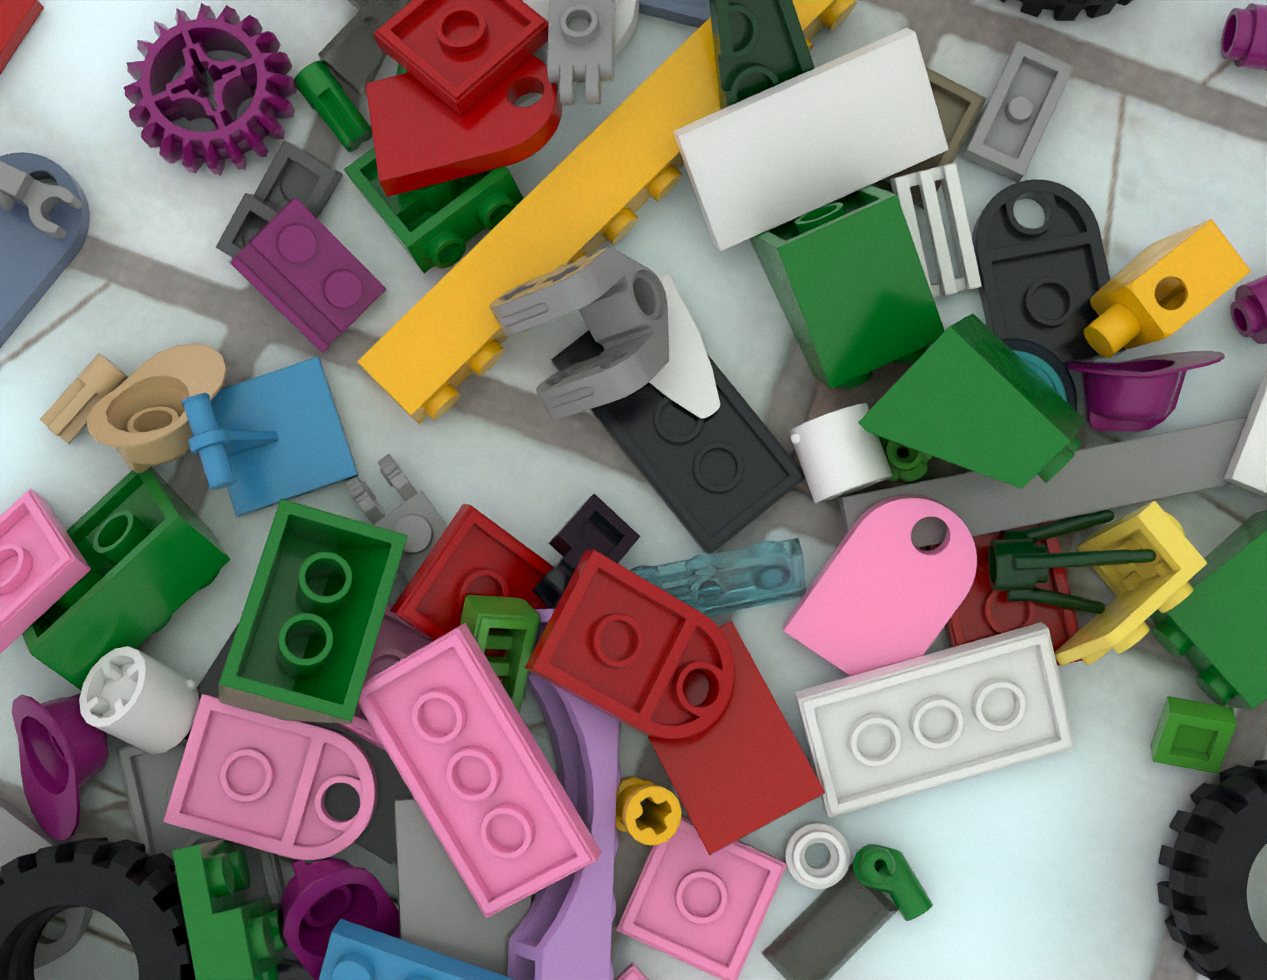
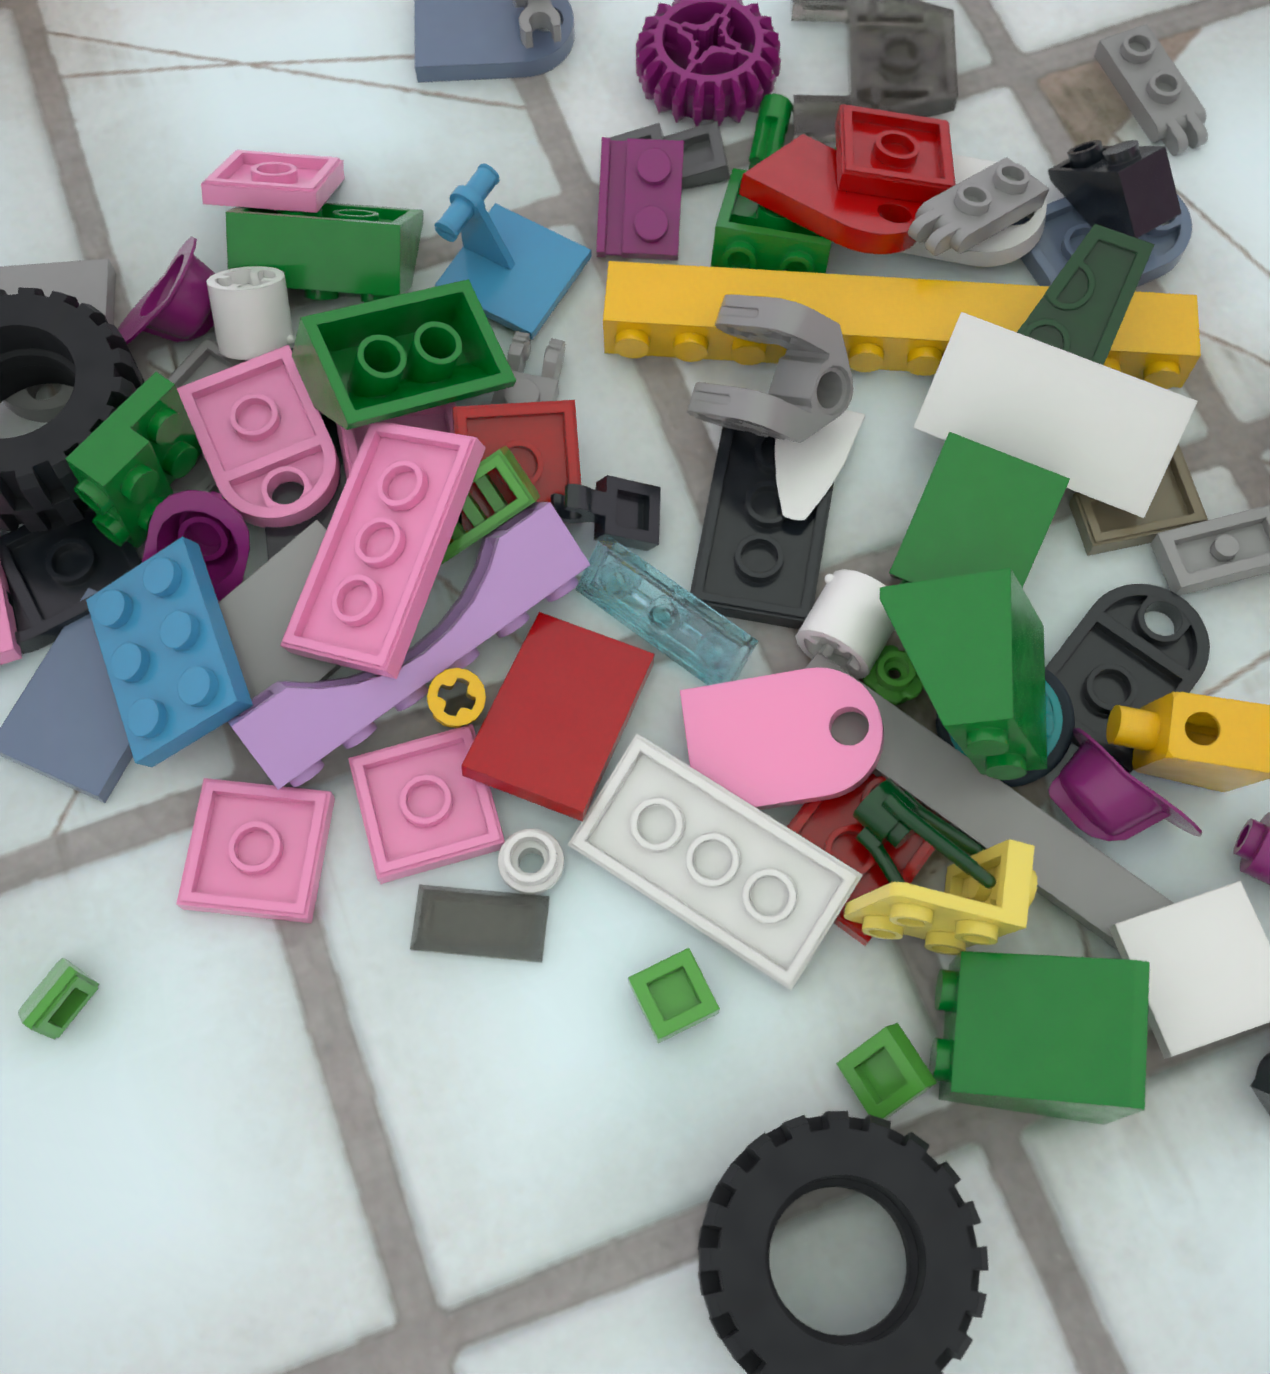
camera: 50 degrees right, 15 degrees down
(70, 410) = (432, 144): tan piece -> none
(146, 410) = (443, 169): tan piece -> none
(631, 648) = (566, 579): red tile -> none
(890, 872) = (565, 928): green arm -> none
(958, 223) = (1104, 520): white tile -> none
(1010, 837) = (673, 995): none -> bright green plate

